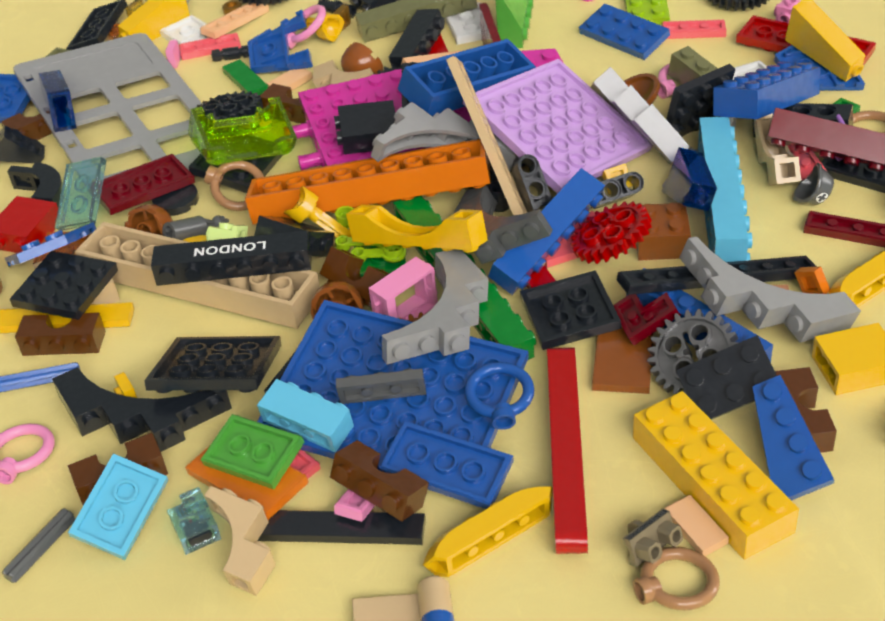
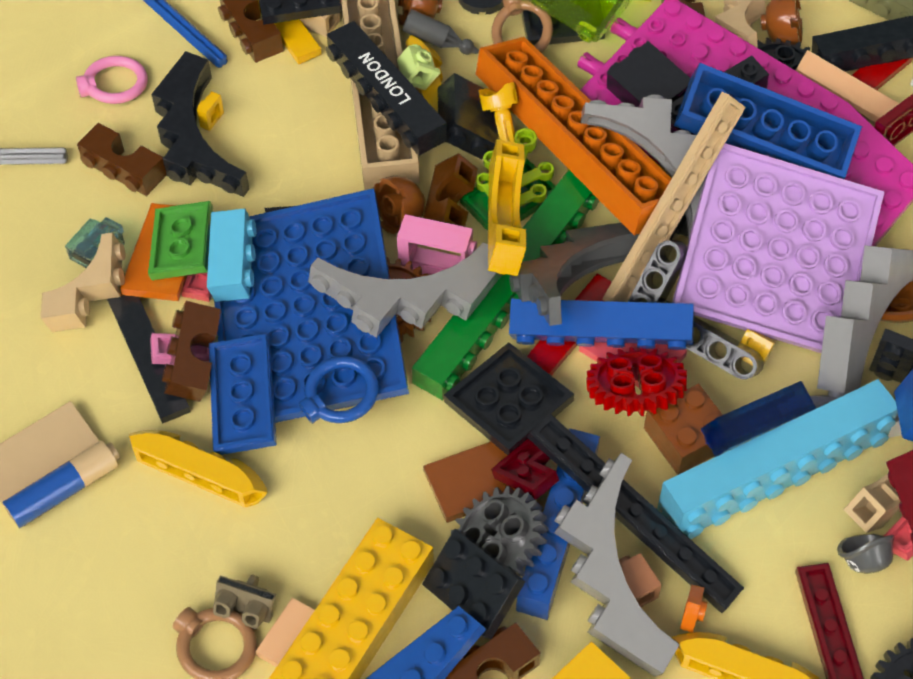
camera: 55 degrees right, 15 degrees up
(118, 506) = (76, 183): medium azure plate -> none
(214, 364) = (266, 153): black plate -> none
(381, 386) = (292, 292): dark grey plate -> none
(566, 453) = (325, 480): red beam -> none

